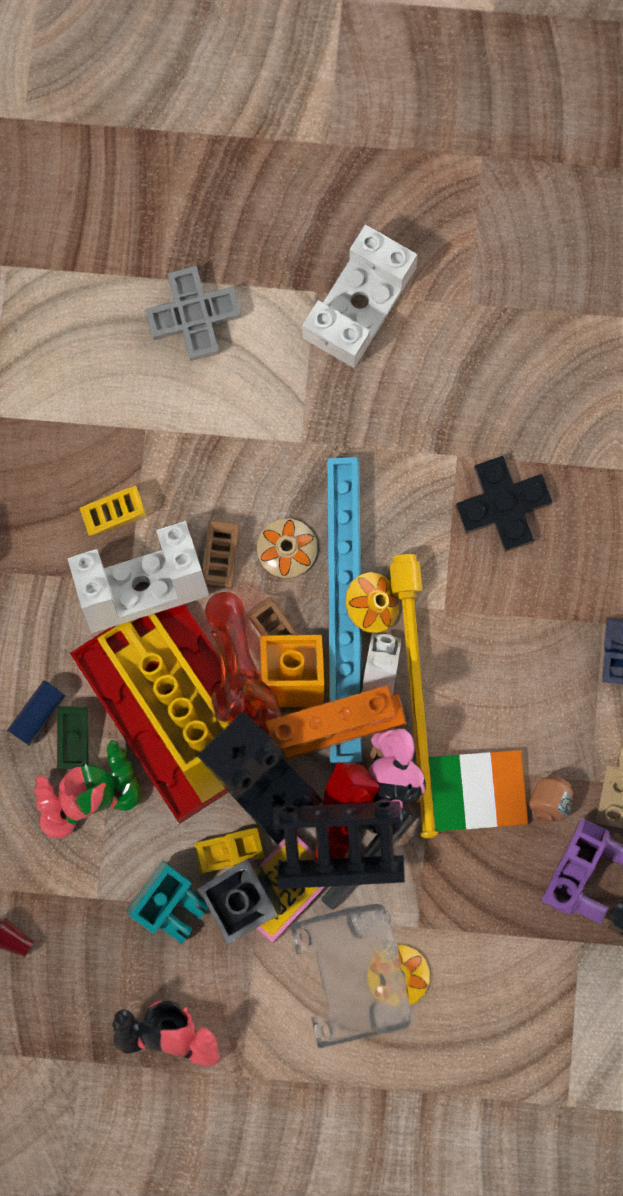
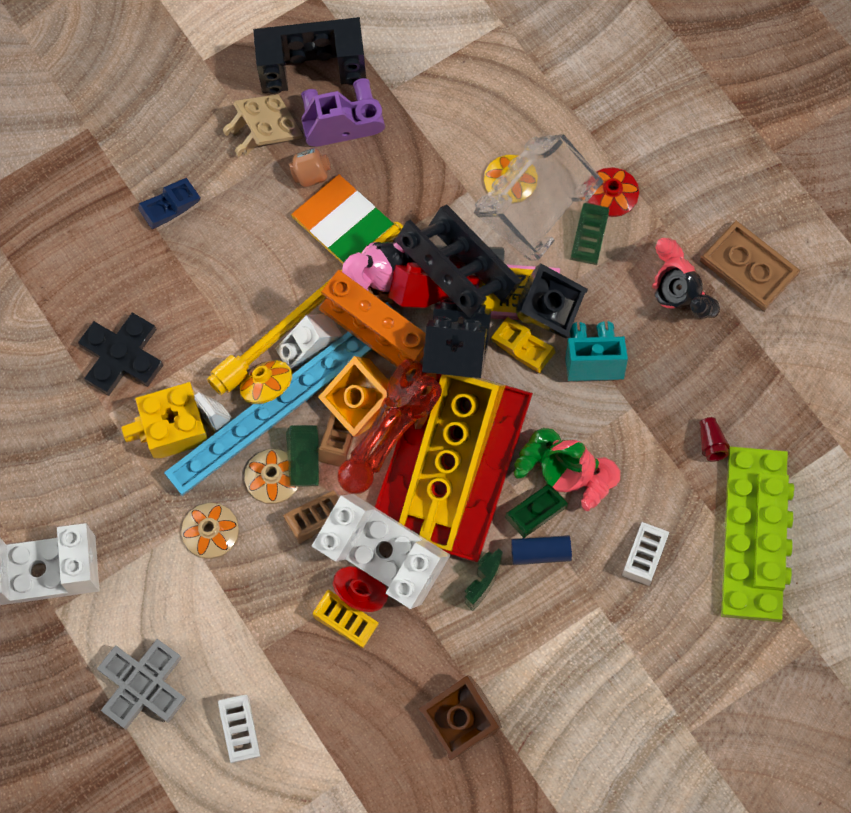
camera: 130 degrees left, 10 degrees down
(53, 653) = (488, 571): none -> clear green slope
(114, 377) = (226, 718): none -> white slope
(119, 549) = (359, 589): none -> red dish
(137, 1116) = (750, 265): none -> medium nougat tile
(280, 583) = (303, 455): none -> clear green slope
(286, 476) = (212, 543): none -> tan dish
(298, 1070) = (620, 200): none -> red dish
(299, 1017) = (591, 216): none -> clear green slope
(376, 536) = (212, 412): none -> white slope
(405, 478) = (155, 426): none -> yellow hinge

